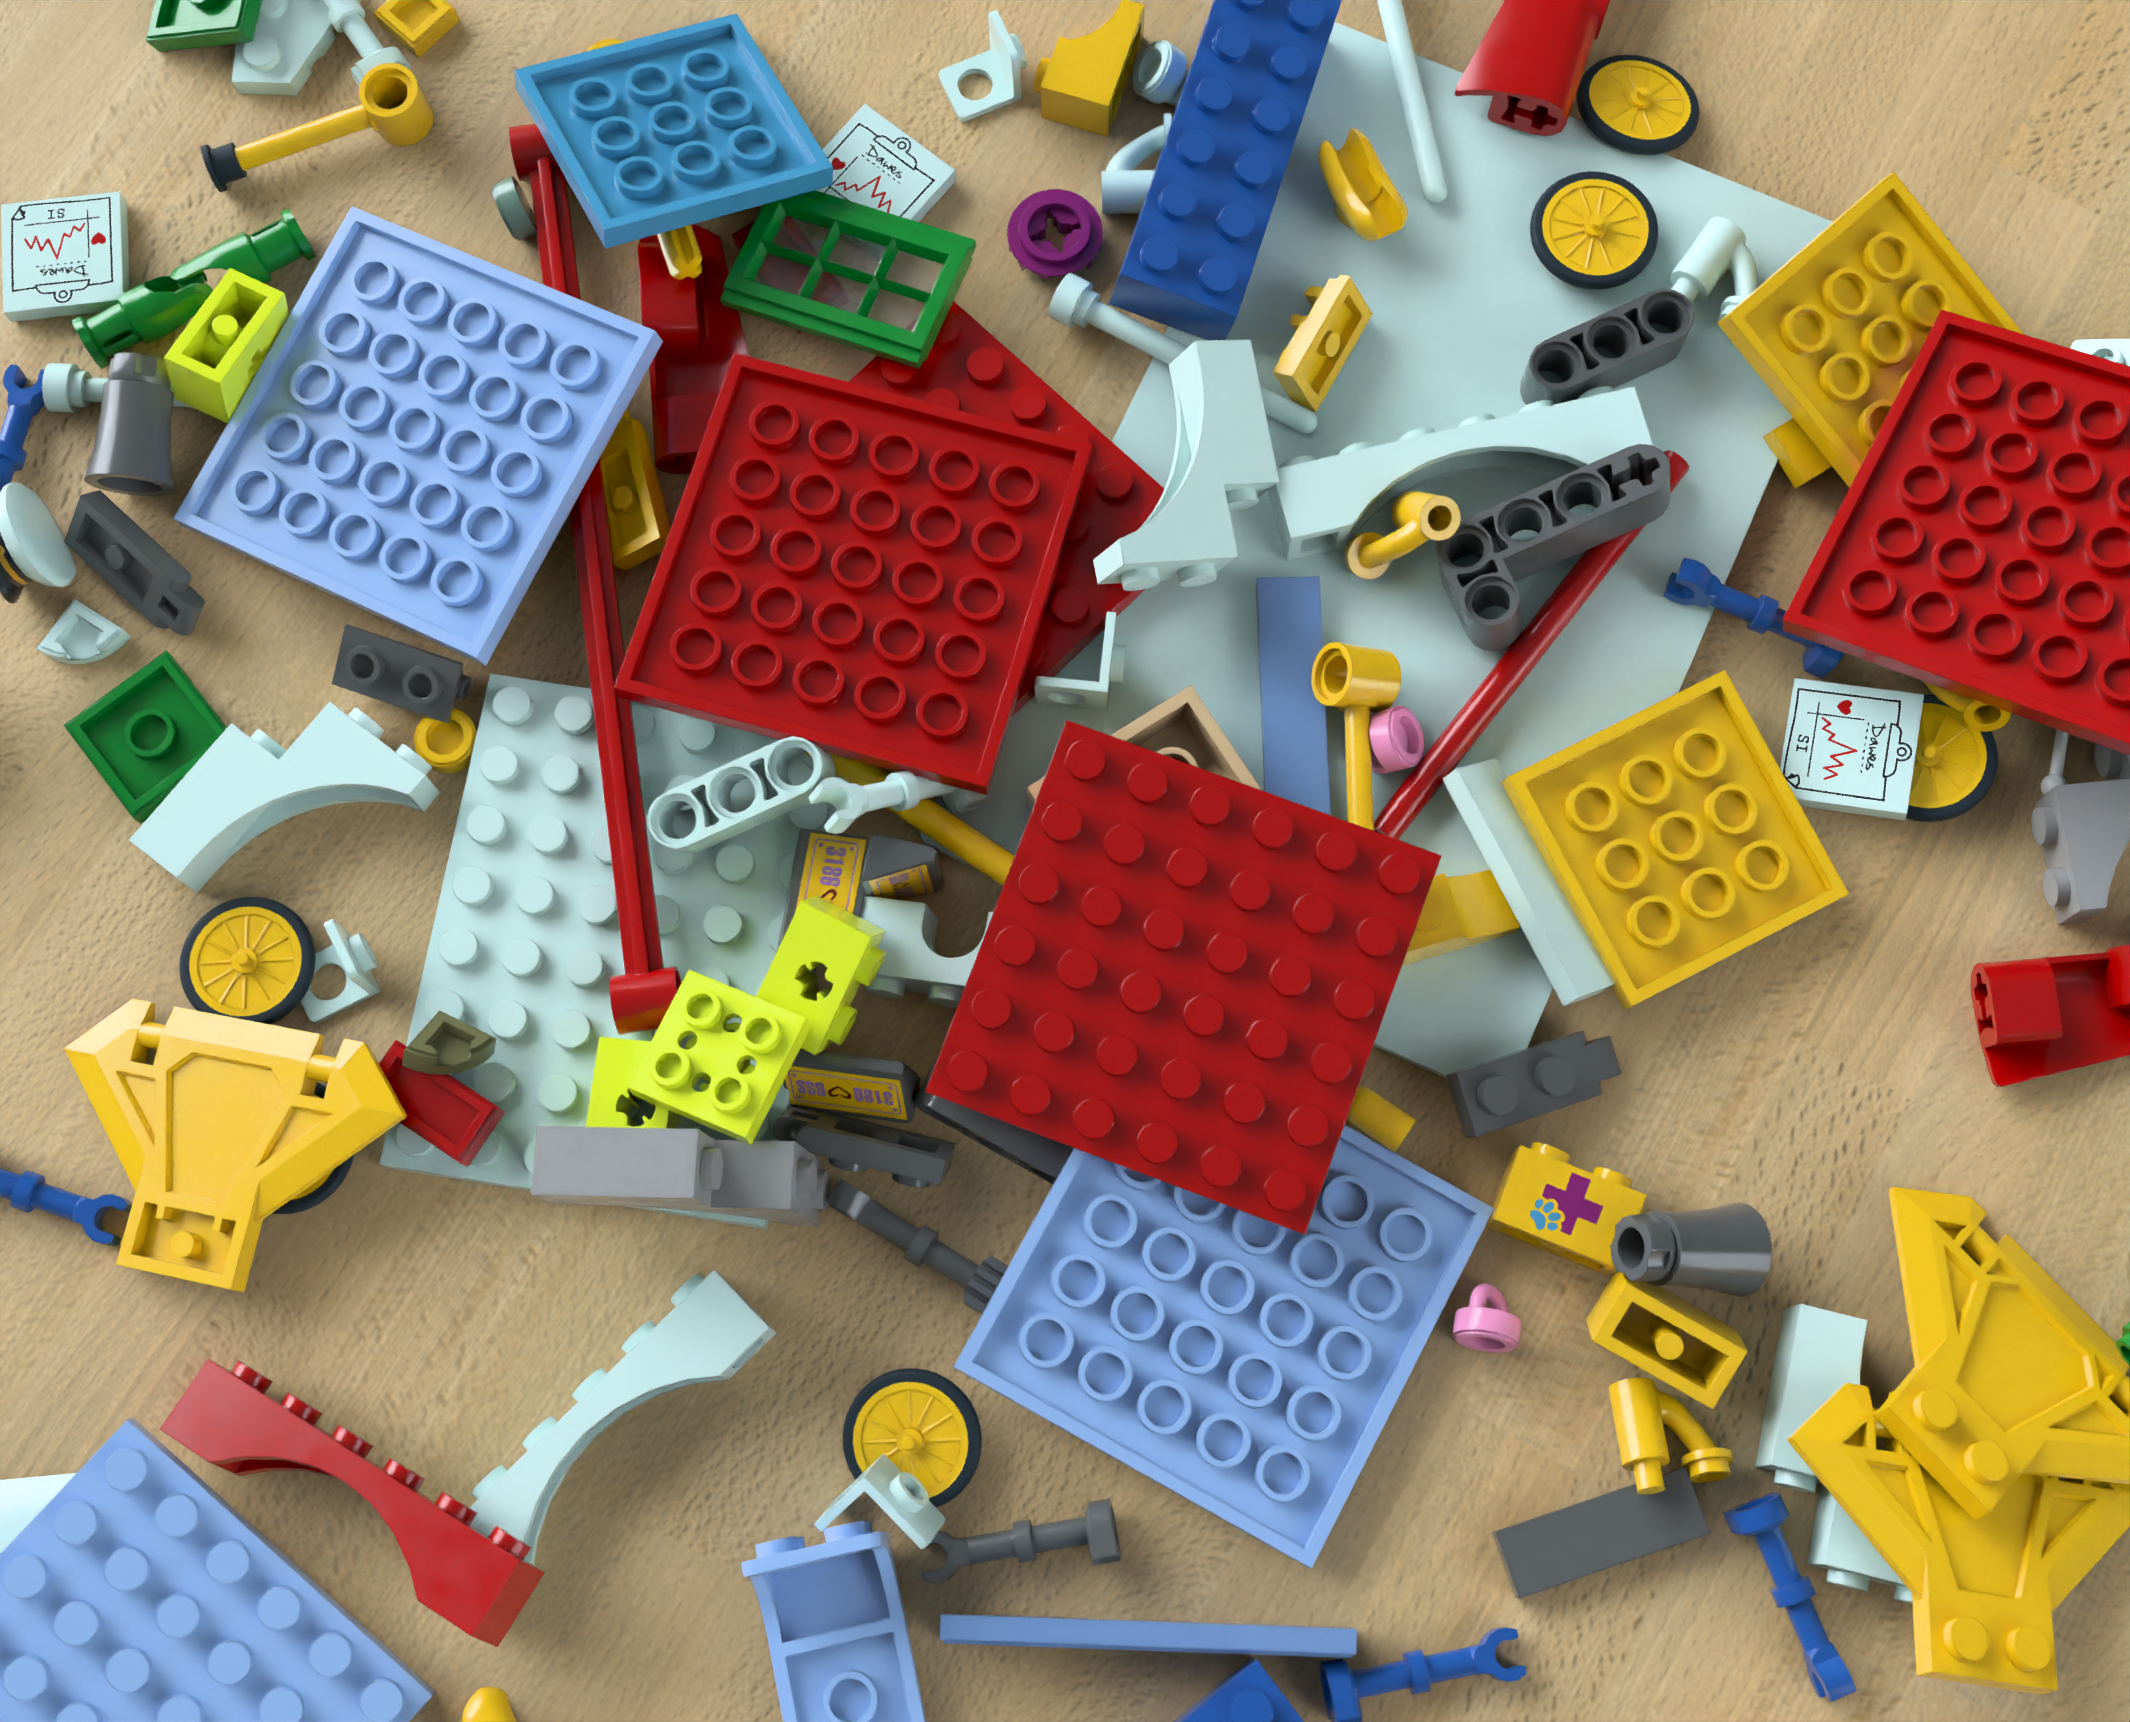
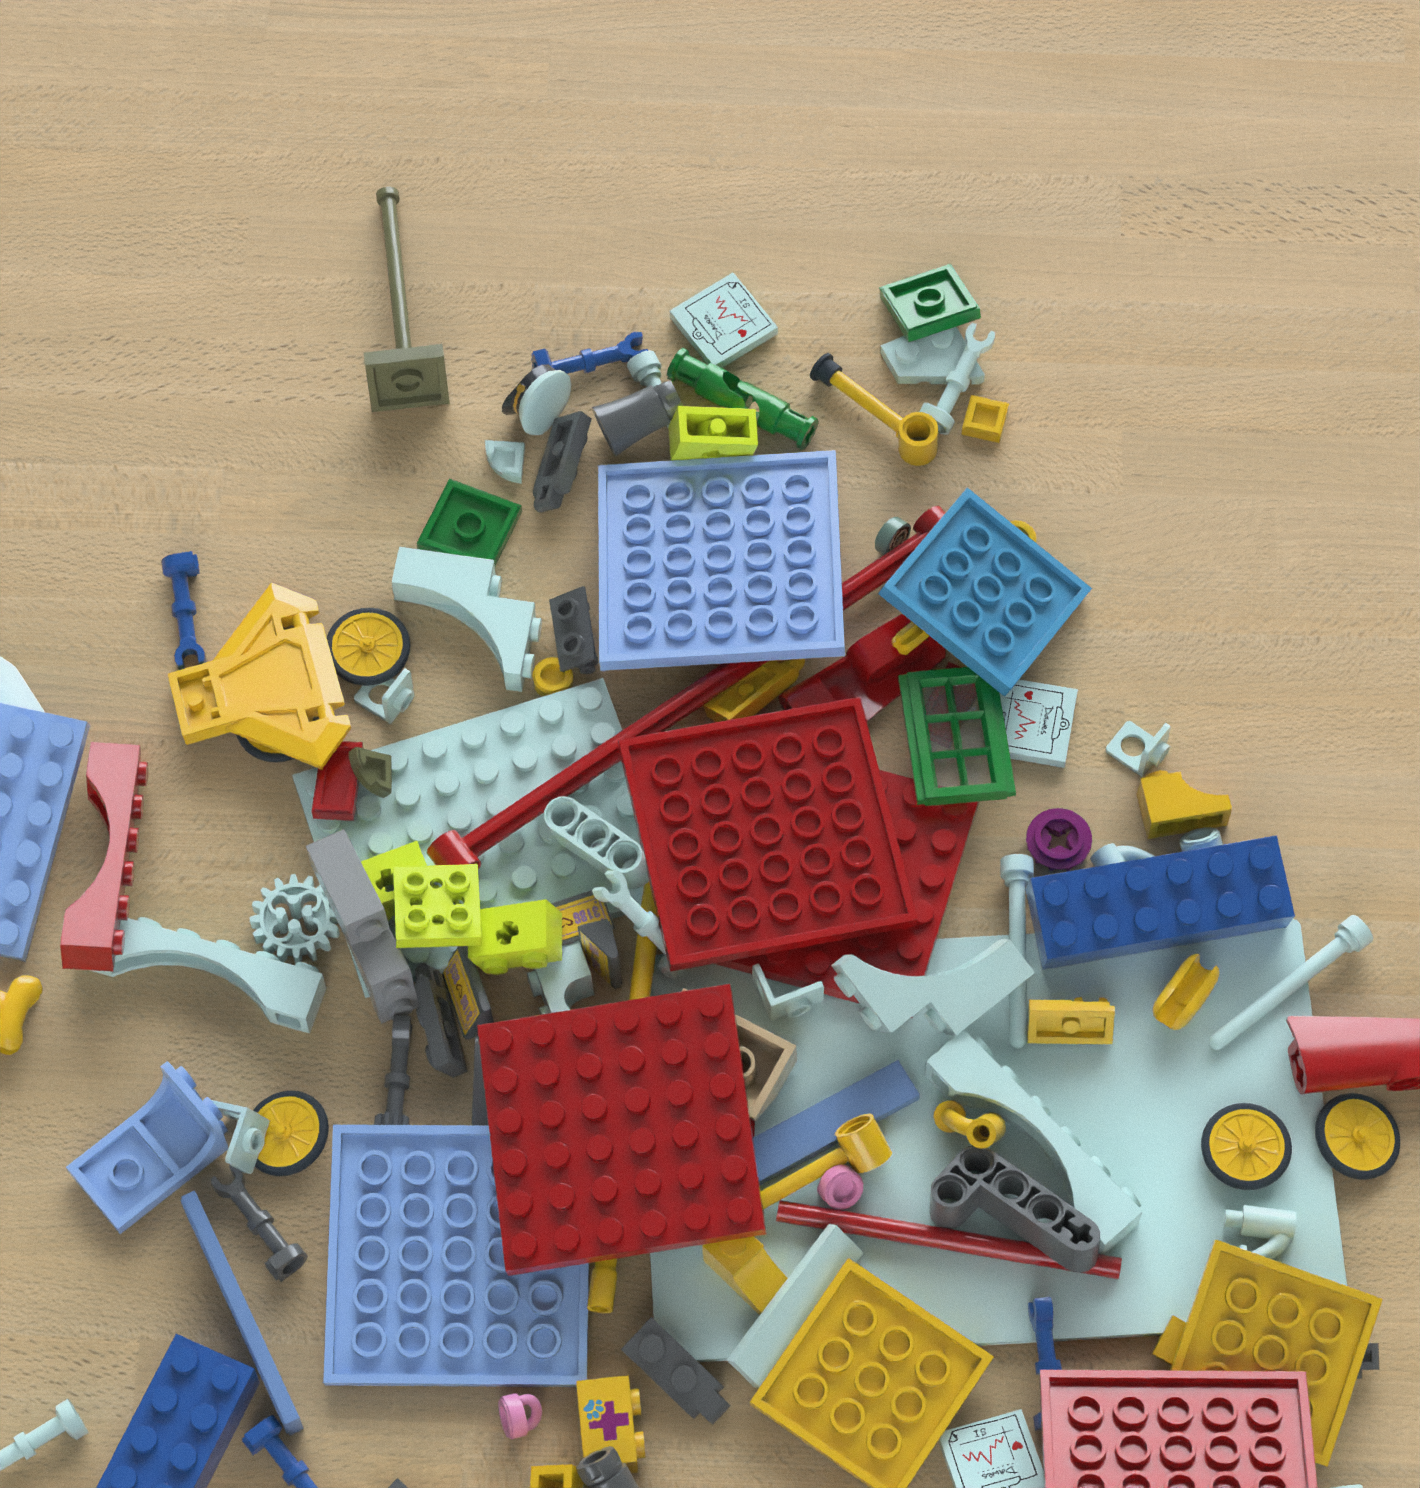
camera: 60 degrees right, 10 degrees down
(585, 1302) = (296, 943): none -> light aqua gear
(1622, 330) = (1172, 1209): dark grey beam -> none

